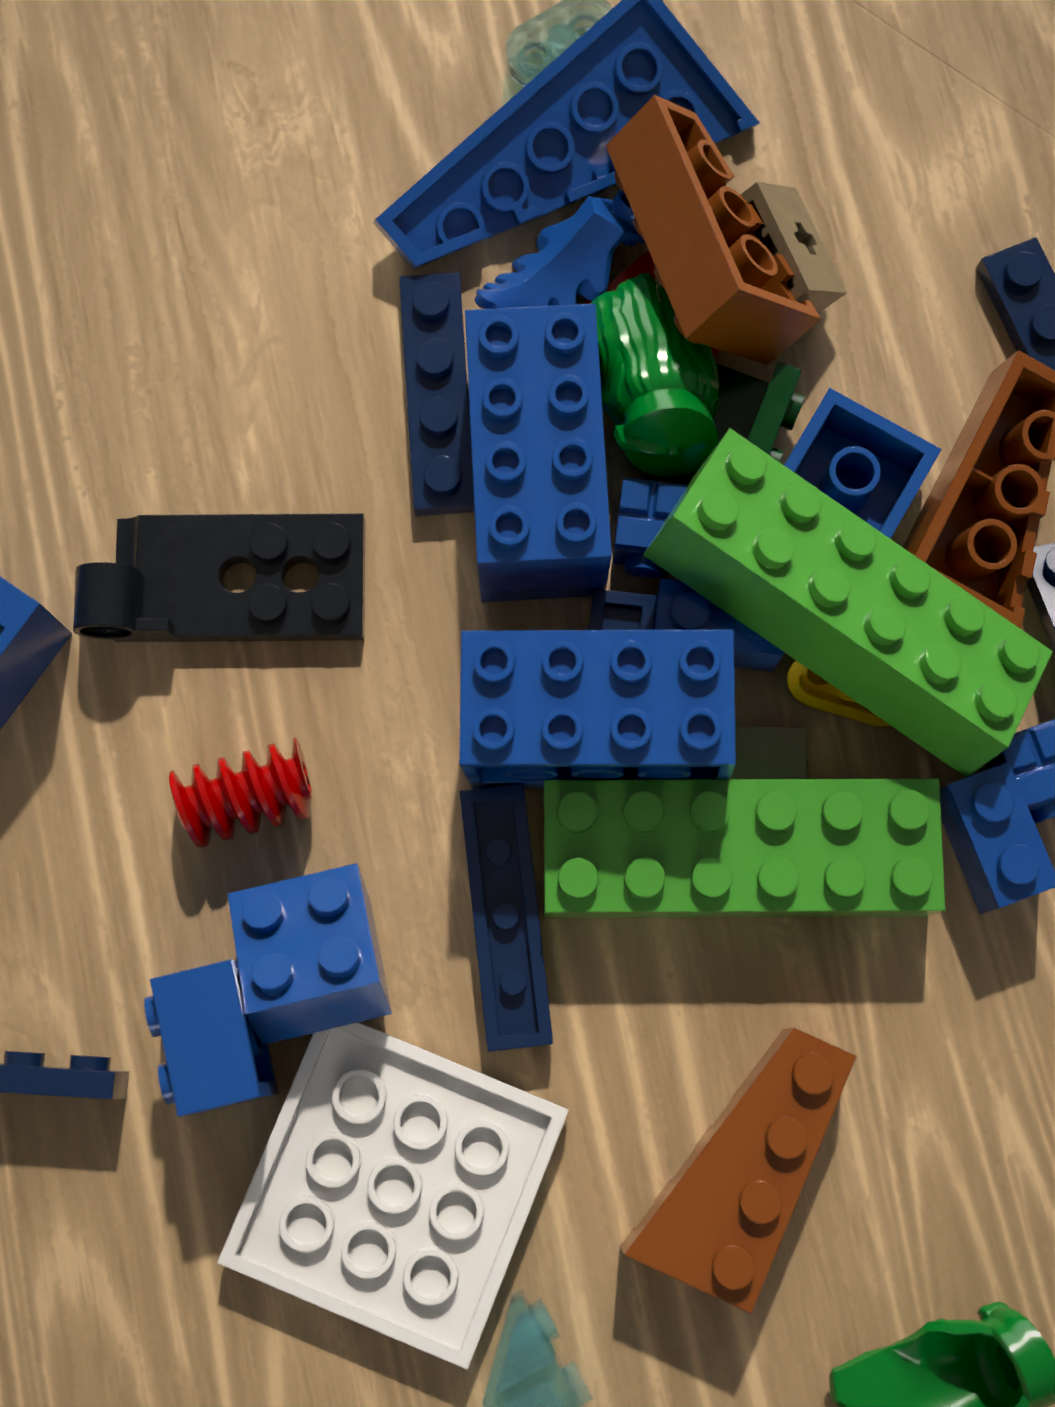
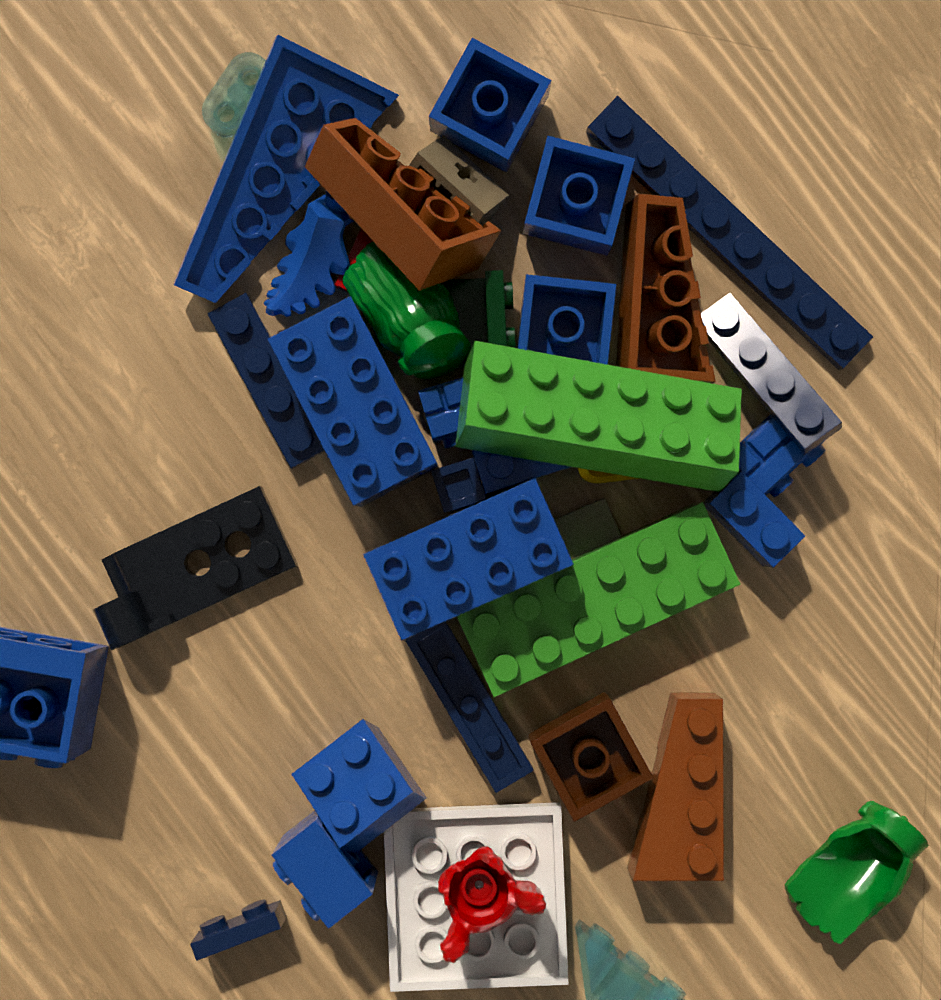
camera: 25 degrees left, 10 degrees up
(242, 795) = (270, 705): red piece -> none
(397, 1199) = (482, 908): none -> red hair
(640, 1056) = (590, 756): none -> reddish brown brick
(870, 175) = (489, 104): none -> blue brick
(935, 329) = (578, 195): none -> blue brick

